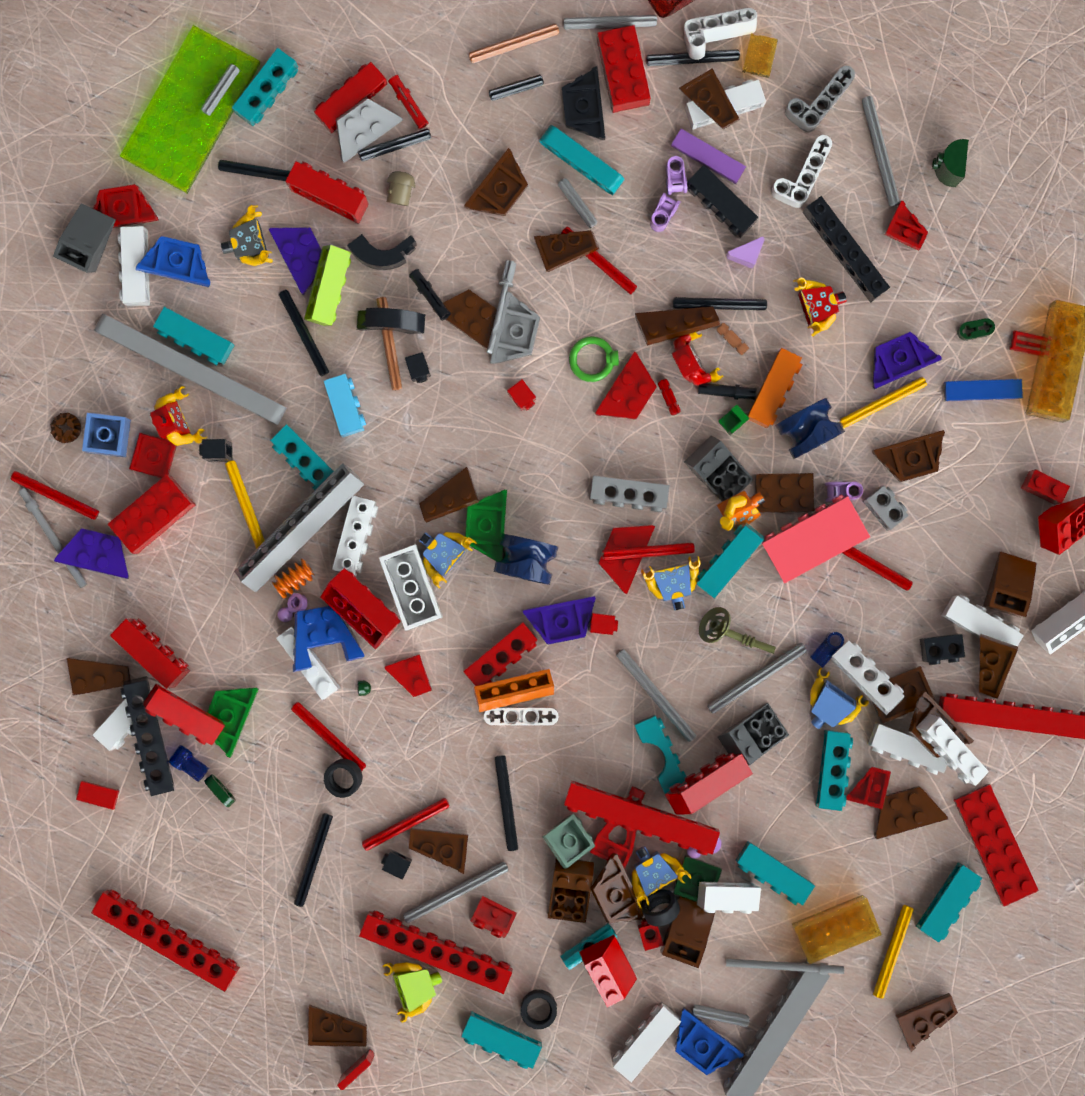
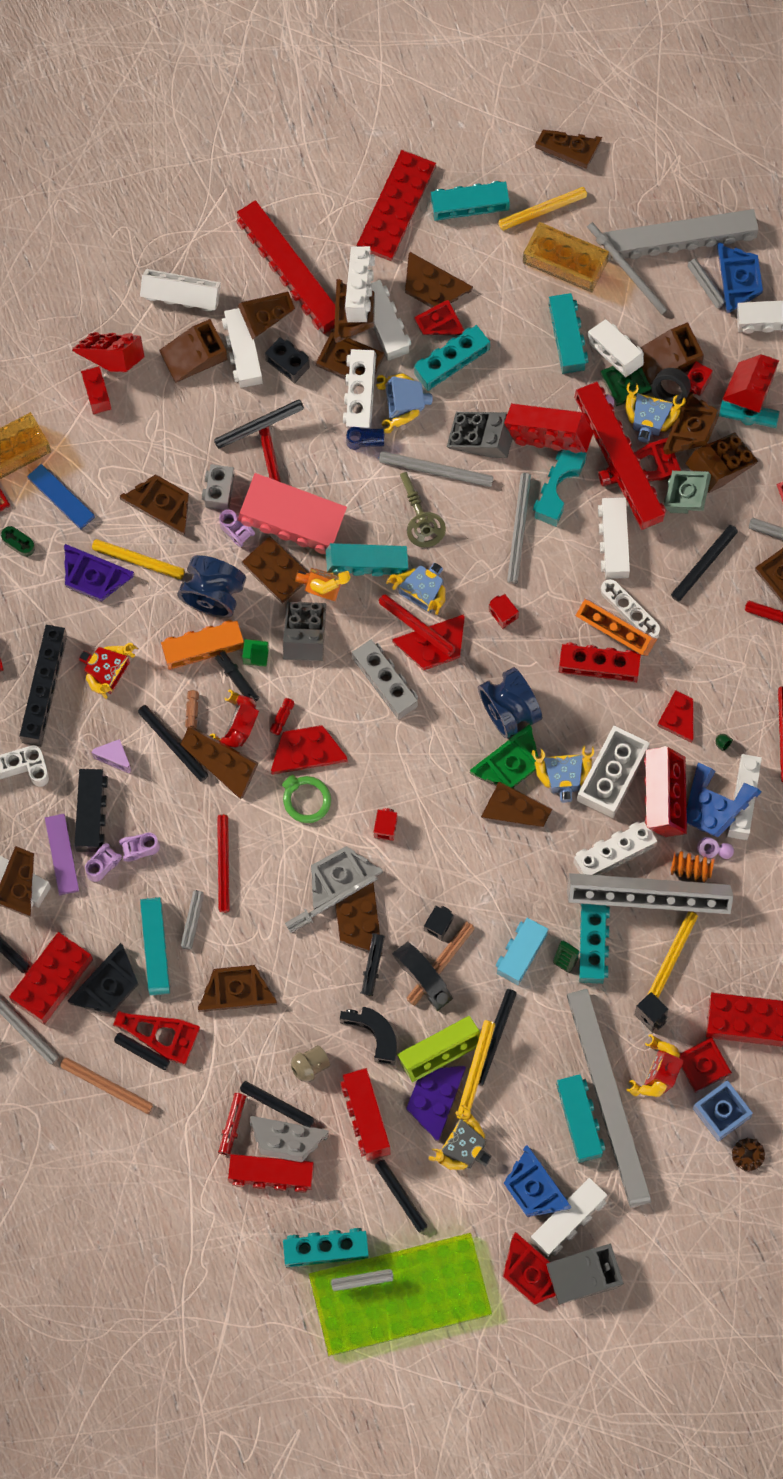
camera: 130 degrees left, 15 degrees down
(290, 296) = (477, 1066): none -> yellow axle
(311, 431) = (566, 956): none -> dark green slope
(495, 118) = (182, 1042): none -> red plate
(562, 620) = (529, 643): dark purple wing -> none
(564, 248) = (239, 894): reddish brown wing -> none
(584, 756) = (614, 538): none -> white brick
(909, 579) = (258, 424): none -> black axle

